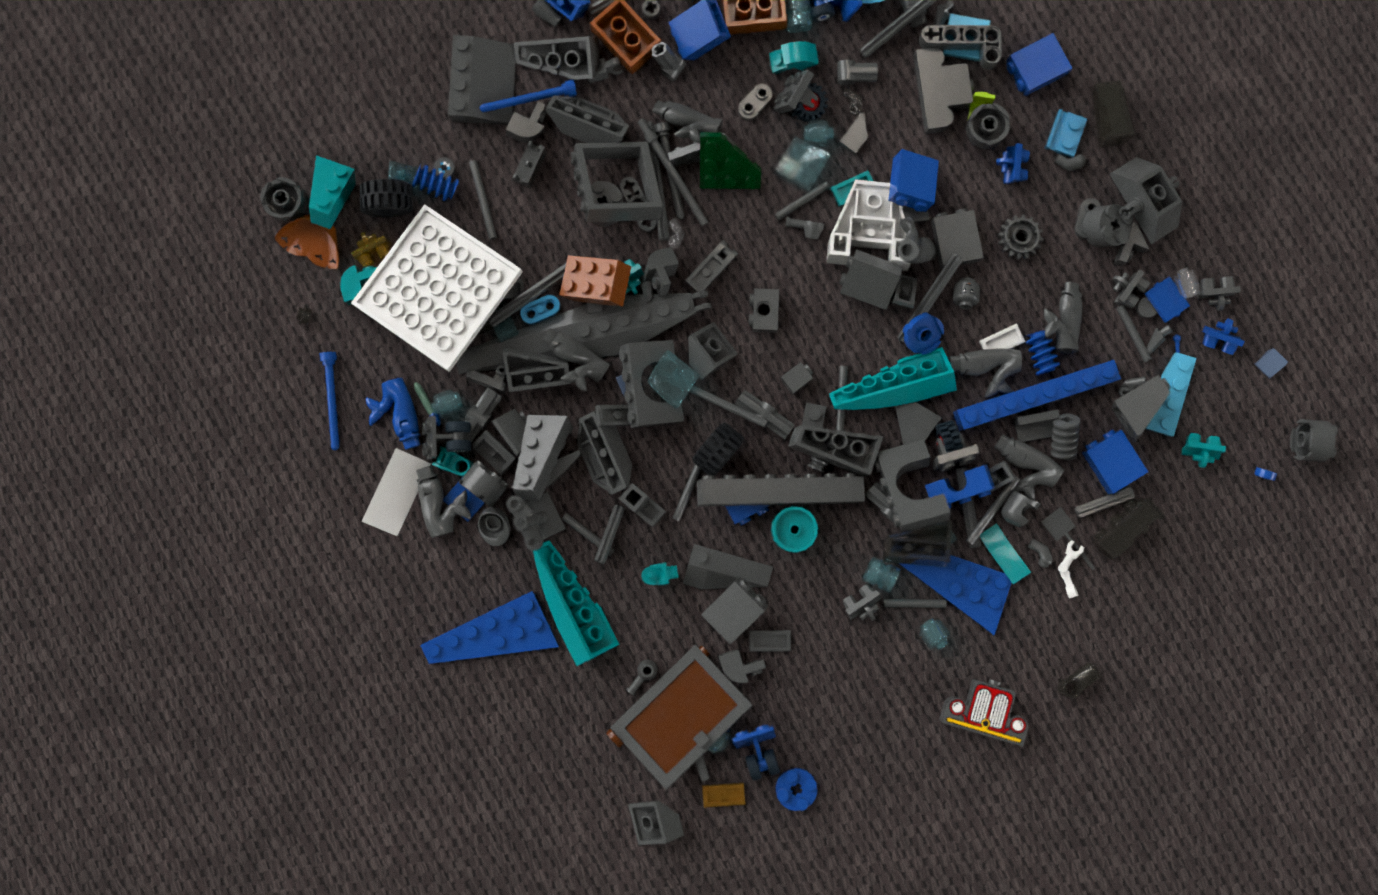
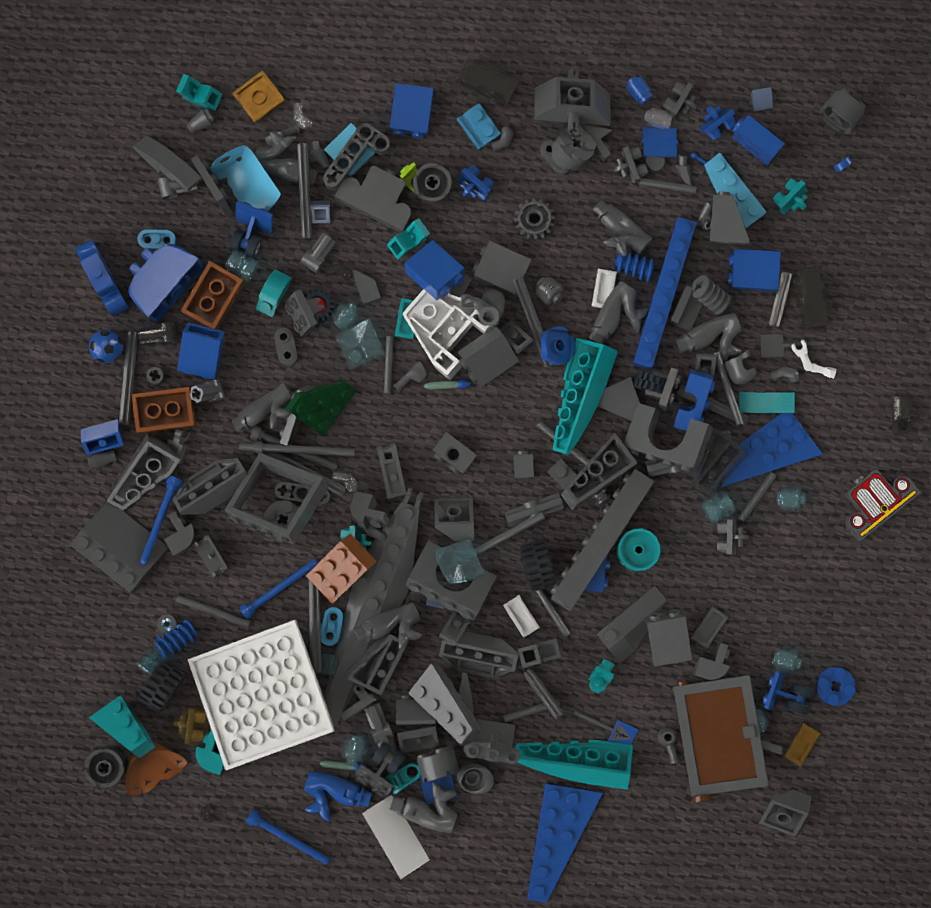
camera: 60 degrees left, 0 degrees up
(504, 228) = (248, 609): none -> blue piece
(622, 626) = (620, 733): none -> piece
(664, 468) = (521, 616): none -> white tile
(788, 730) = (787, 660): none -> clear light blue head
(830, 275) = (447, 384): none -> sand green piece
(893, 50) = (320, 211): none -> sand blue slope
(924, 141) = (408, 239): none -> teal brick
(1200, 249) = (639, 89): none -> blue brick
(1233, 382) = (757, 139): none -> blue brick

